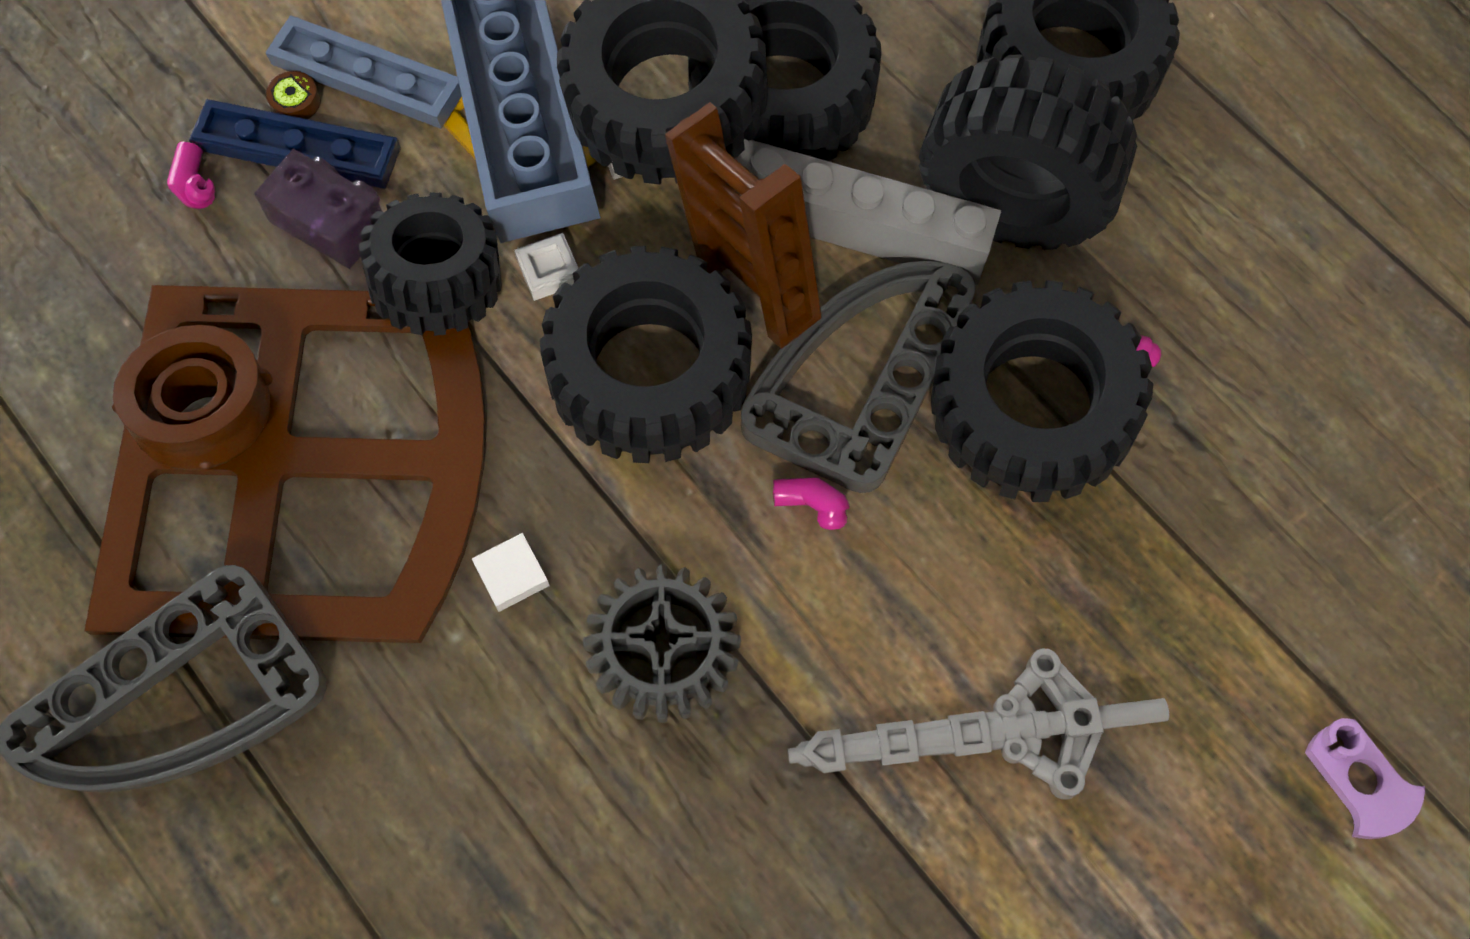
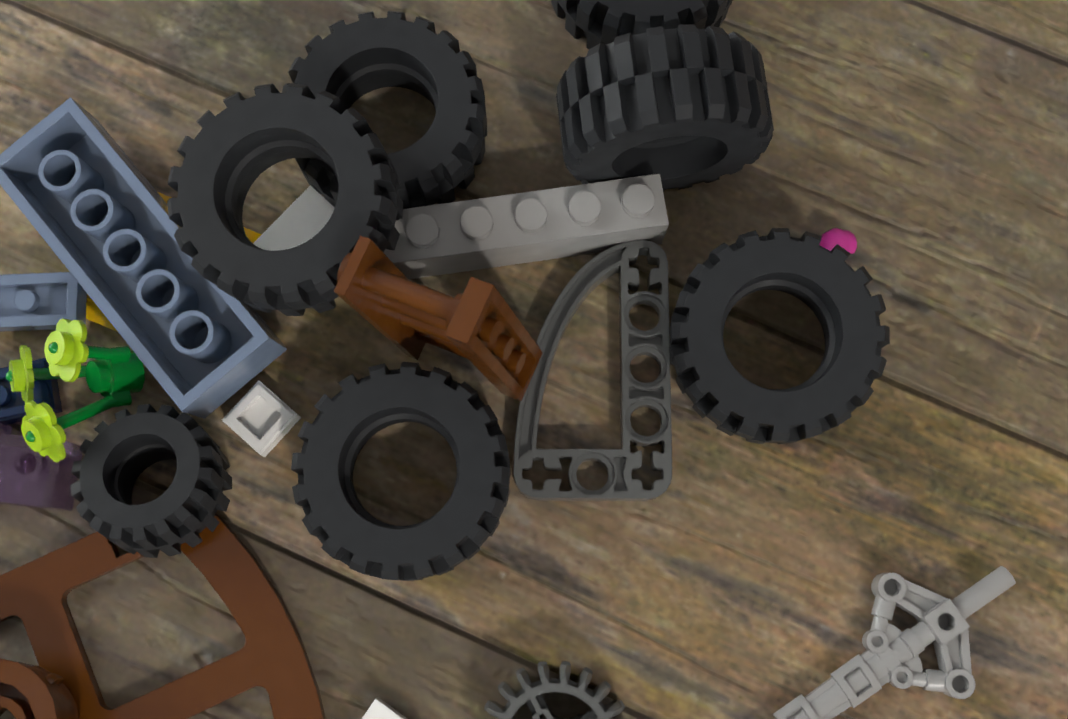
camera: 25 degrees left, 10 degrees up
(443, 170) = (113, 374): none -> plant
(815, 493) = (620, 525): dark pink arm -> none

